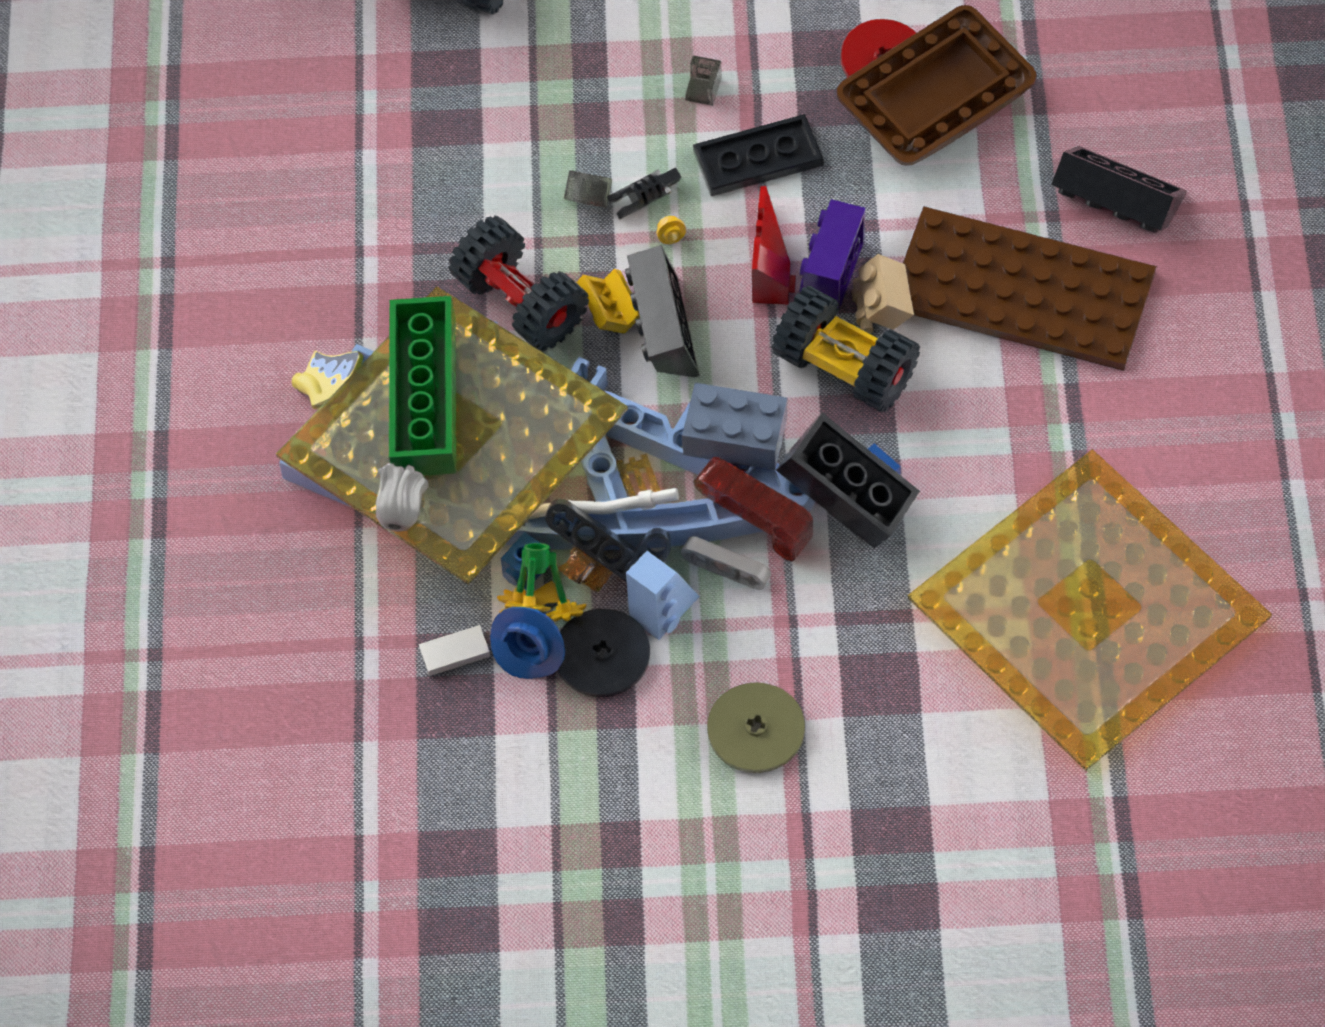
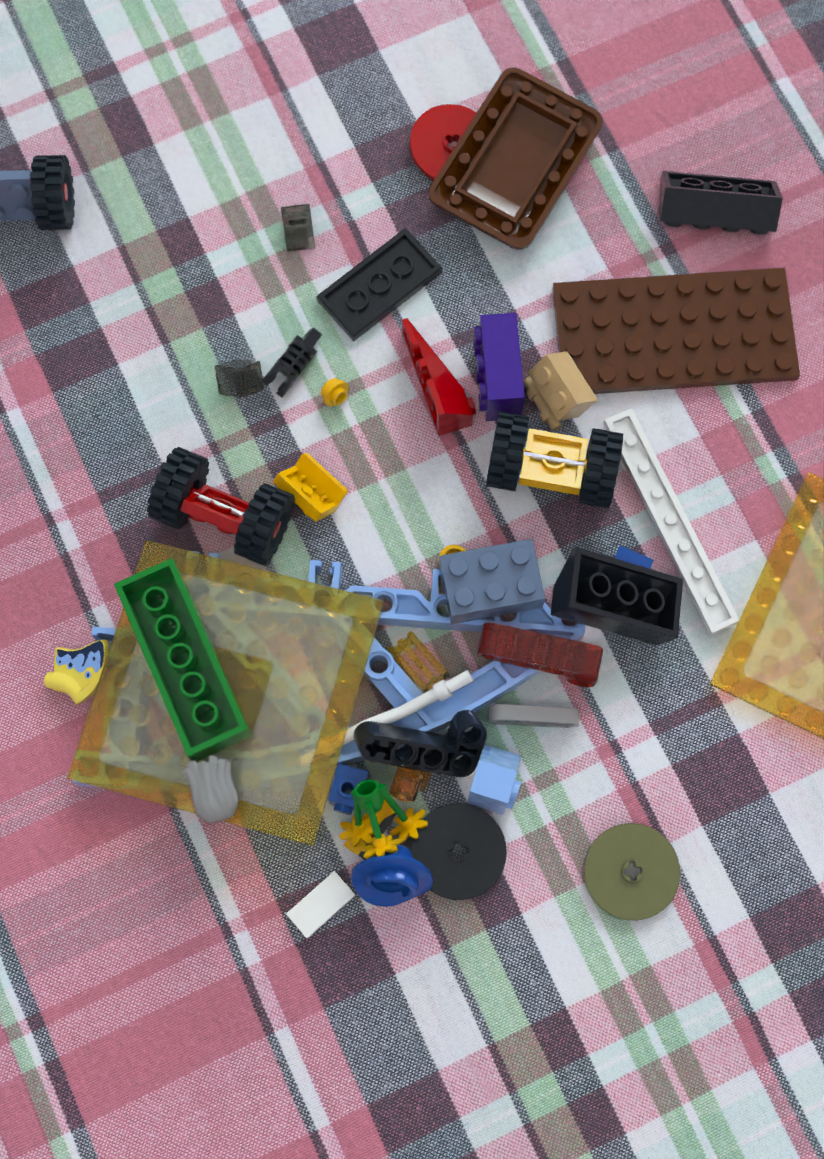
camera: 25 degrees left, 15 degrees up
(661, 313) = (367, 485): slope -> none
(937, 448) = (672, 524): none -> white plate

